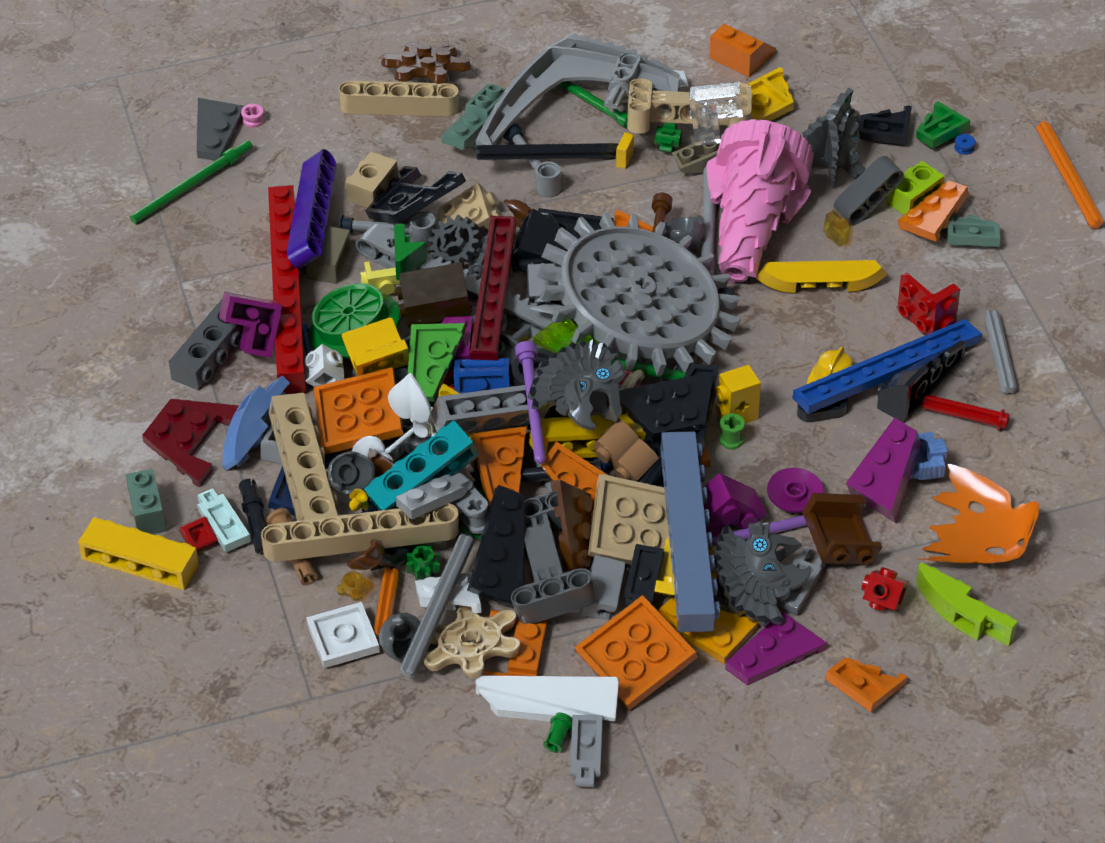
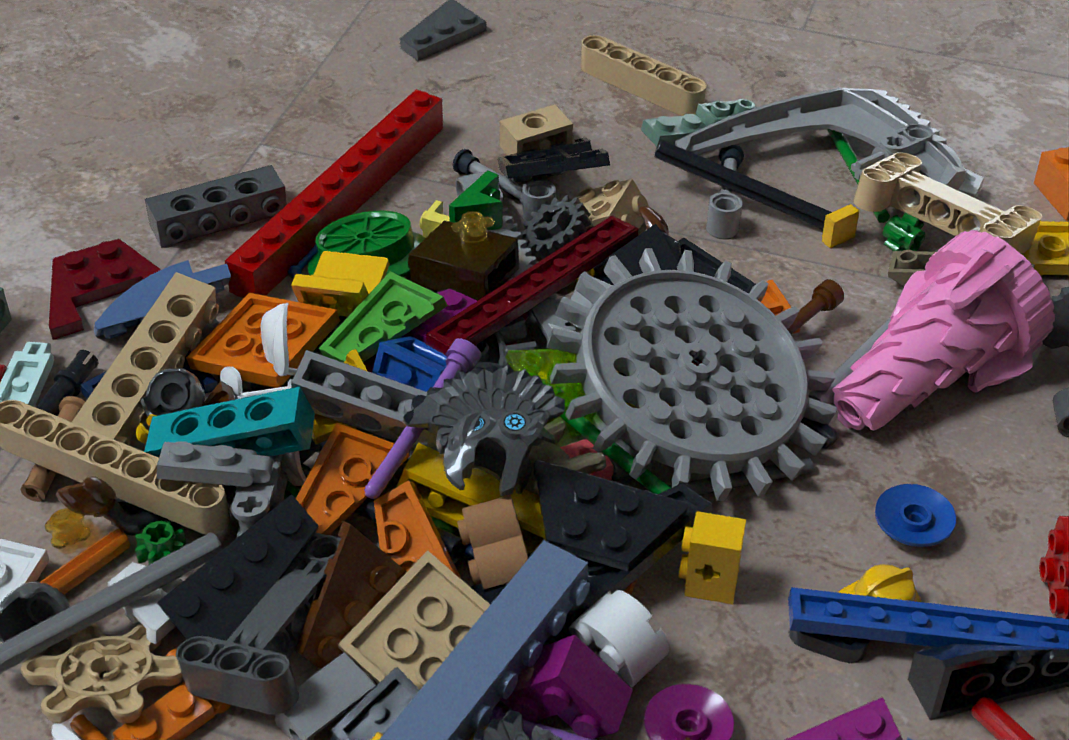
camera: 35 degrees right, 5 degrees down
(228, 158) = (425, 57): green bar -> none
(252, 115) = (487, 33): bright pink bush -> none
(259, 320) = (260, 193): magenta brick -> none
(311, 209) = (434, 128): dark purple beam -> none
(323, 366) = (281, 275): white brick -> none
(334, 255) = (417, 180): dark tan brick -> none
(424, 61) = (701, 55): reddish brown plate -> none
(429, 268) = (473, 227): none -> clear yellow plate
(681, 227) = (837, 339): dark grey hair -> none
(712, 104) = (963, 206): clear brick -> none
(731, 459) = (620, 635): none -> white brick
(732, 426) = (676, 592): bright green bush -> none
(816, 315) = (915, 515): none -> blue dish
(836, 228) = (1033, 426): clear yellow plate -> none
(856, 274) = (1013, 491): yellow brick -> none

